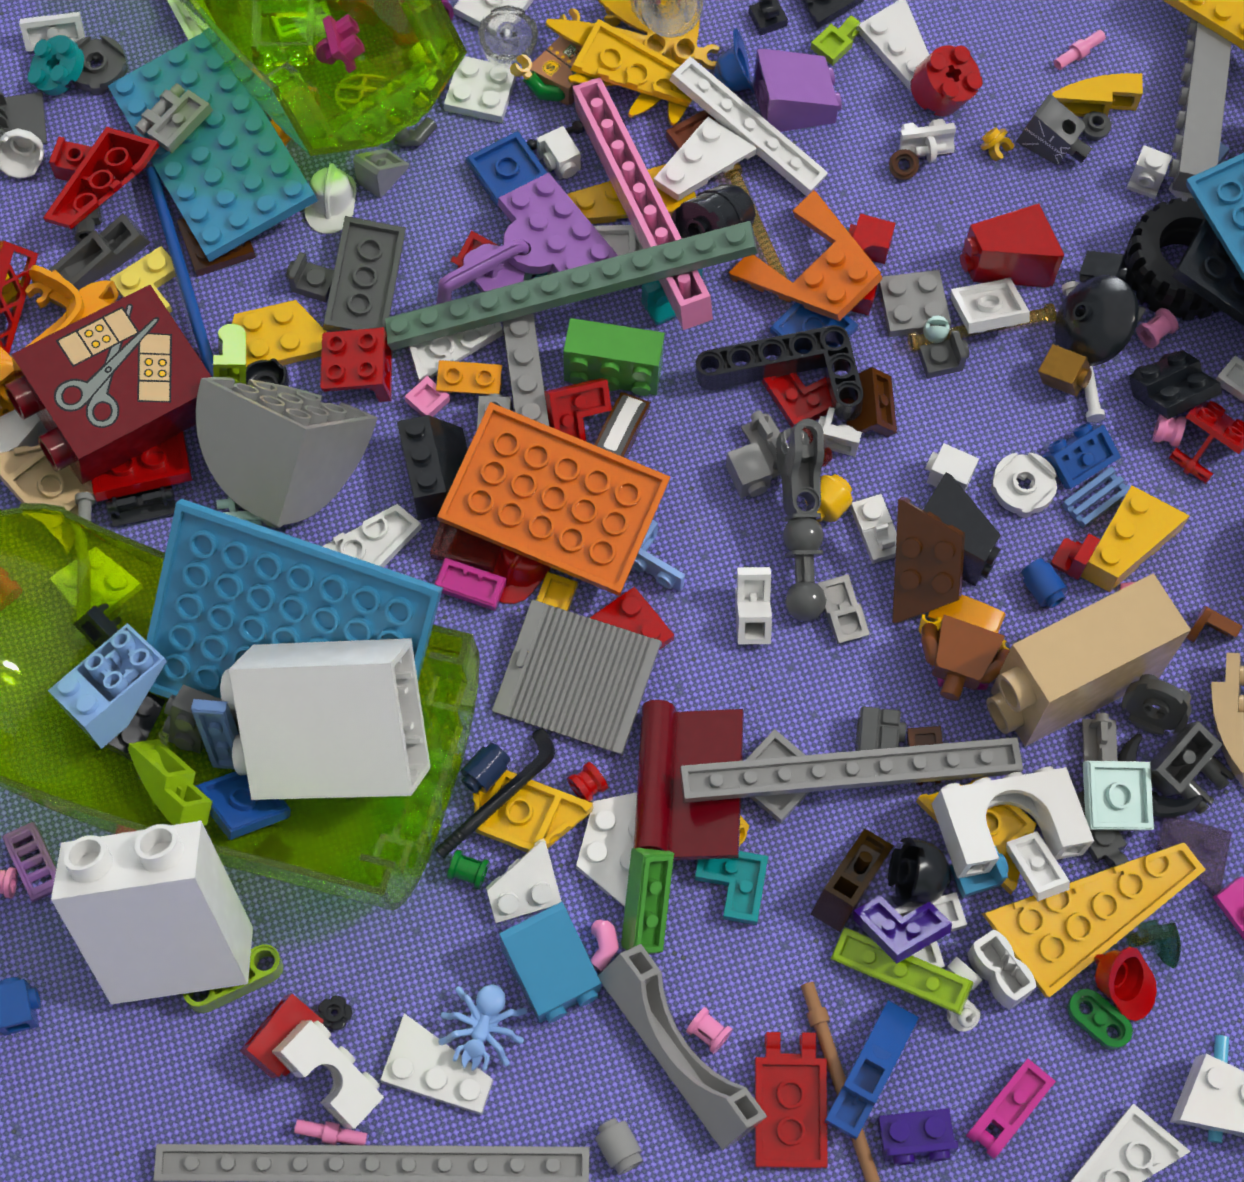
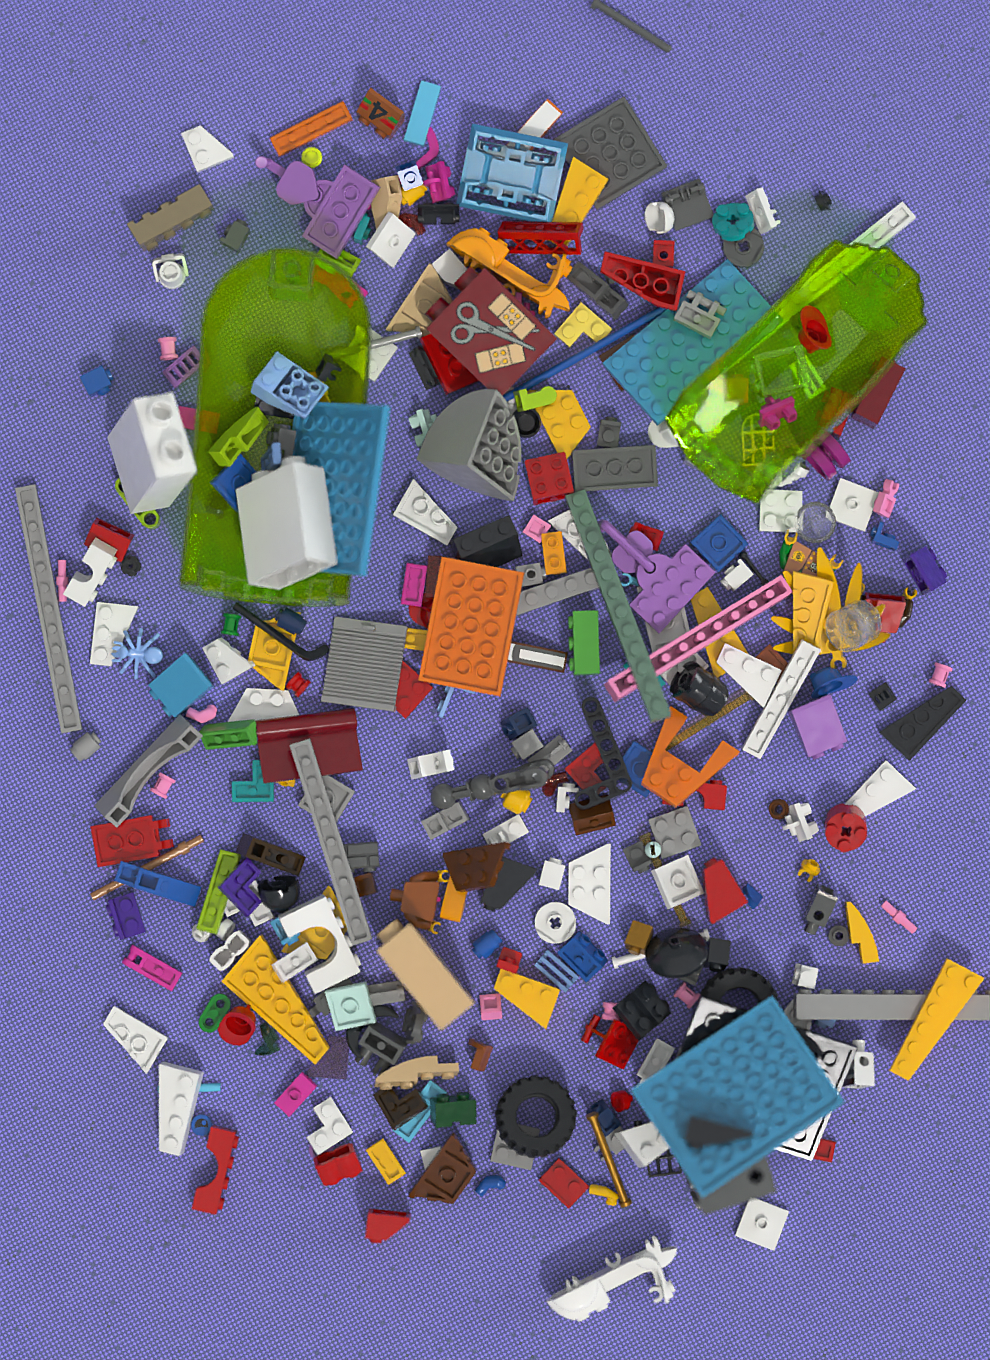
camera: 75 degrees right, 20 degrees up
(571, 403) = (545, 623): red plate -> none
(715, 478) = (518, 723): none -> dark blue bracket
(836, 42) = (867, 745): lime plate -> none
(973, 424) = (591, 883): none -> white wing

